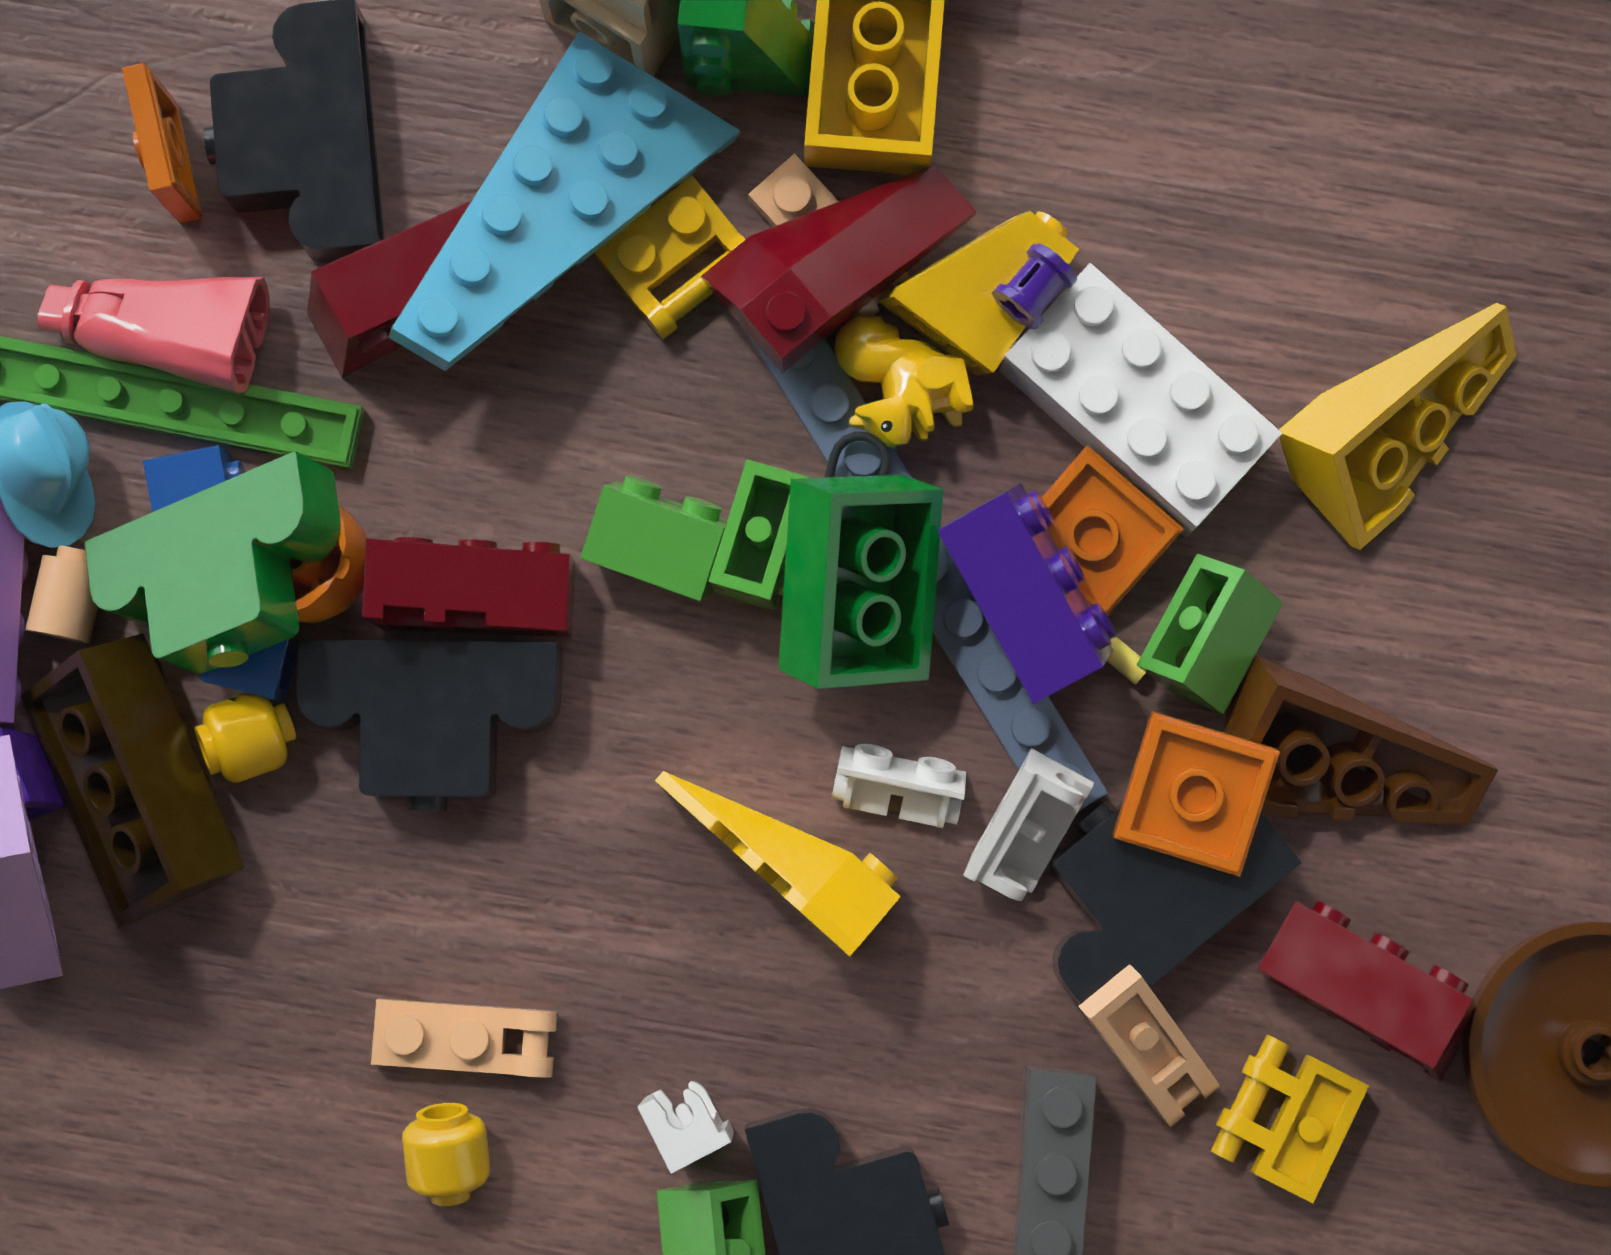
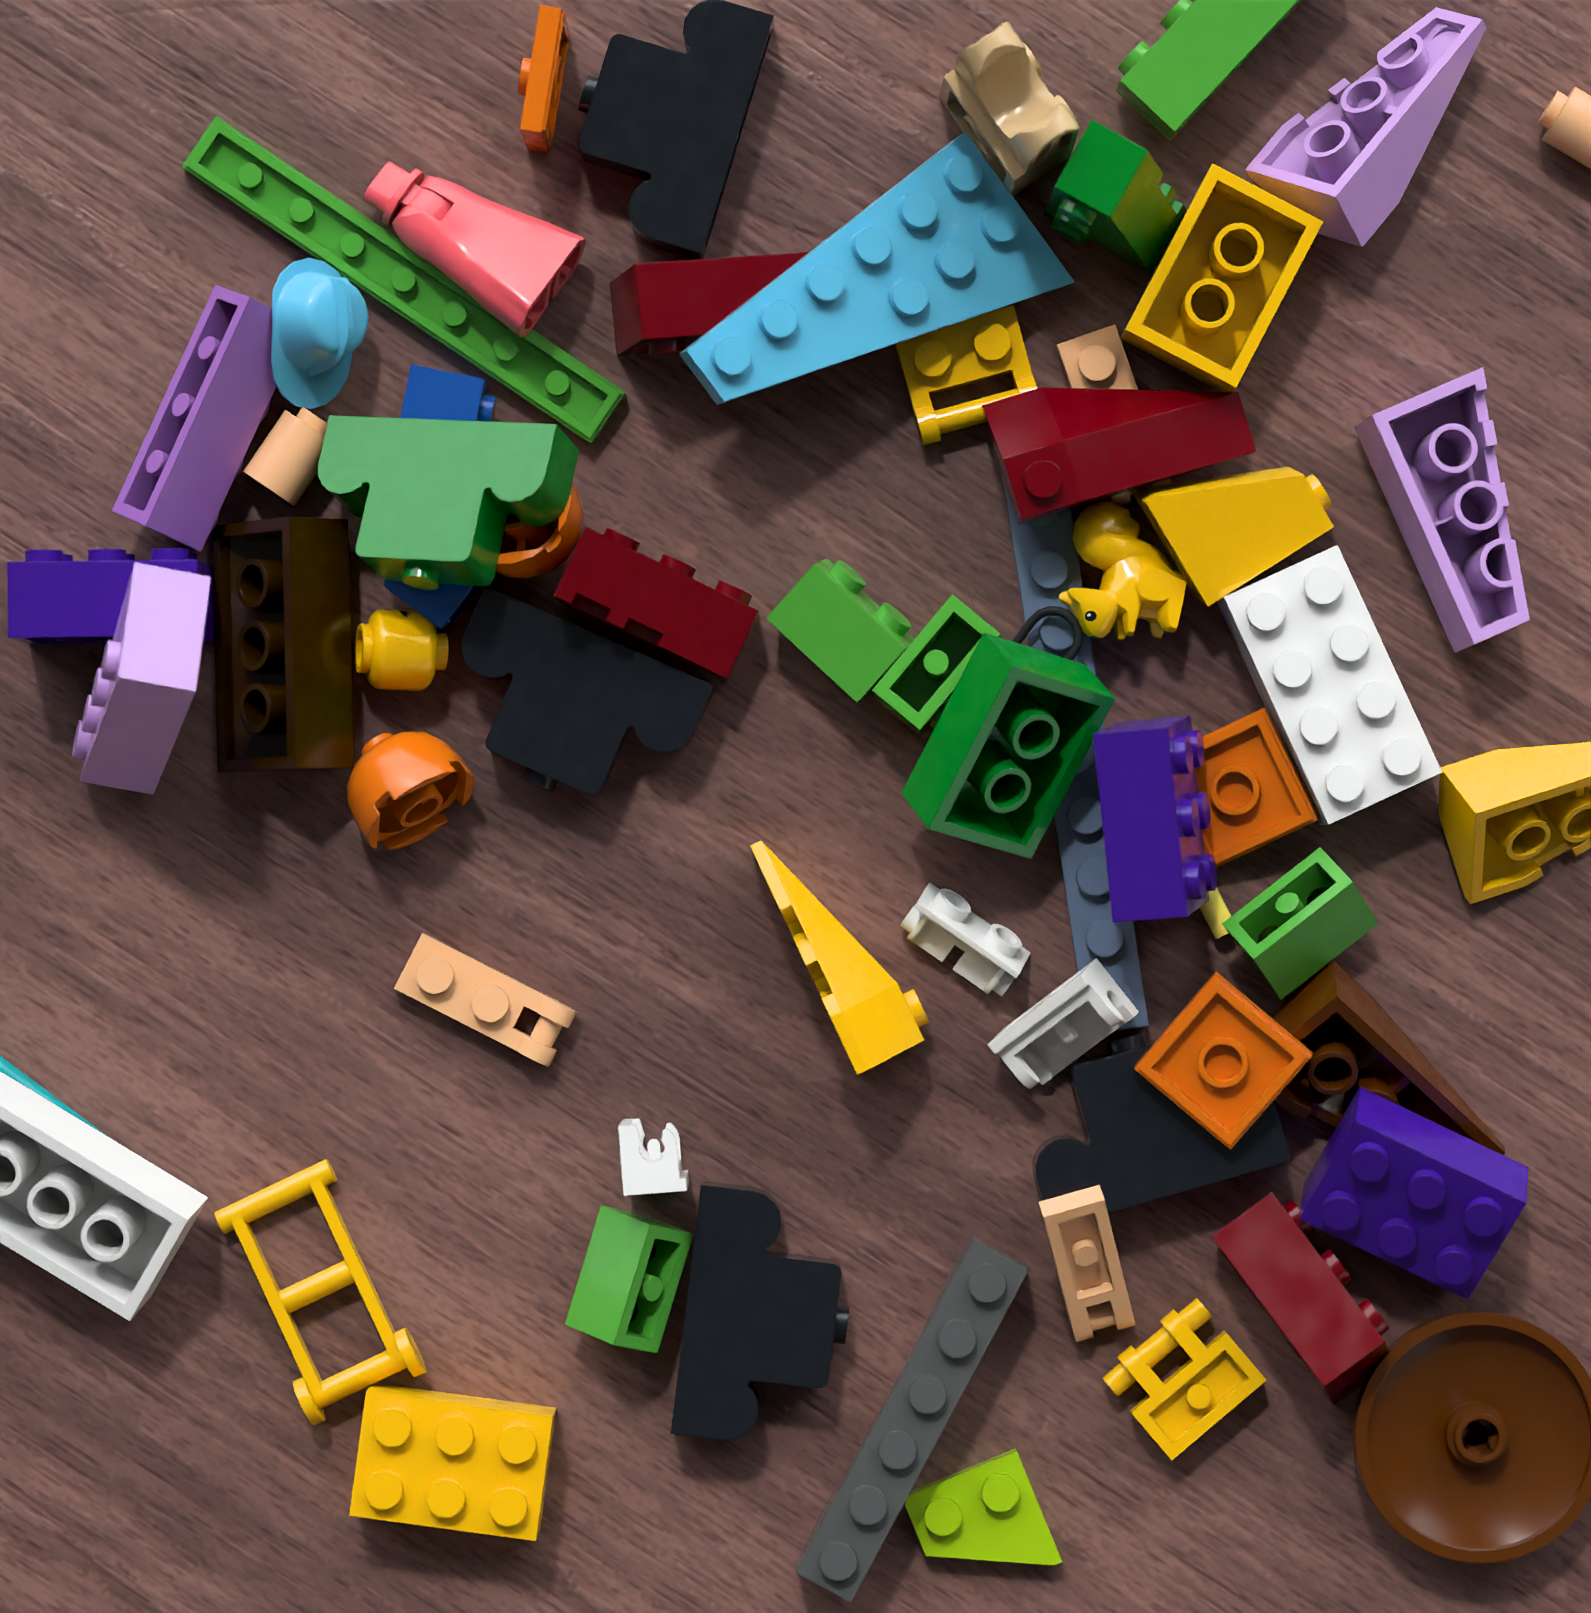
camera: 20 degrees right, 5 degrees up
(301, 866) = (405, 786): none -> orange cylinder
(446, 1153) = (429, 1094): yellow head -> none
(1034, 286) = (1276, 547): dark purple bush -> none
(1179, 186) = (1450, 505): none -> lavender wedge
(1433, 844) = (1414, 1193): none -> dark purple brick

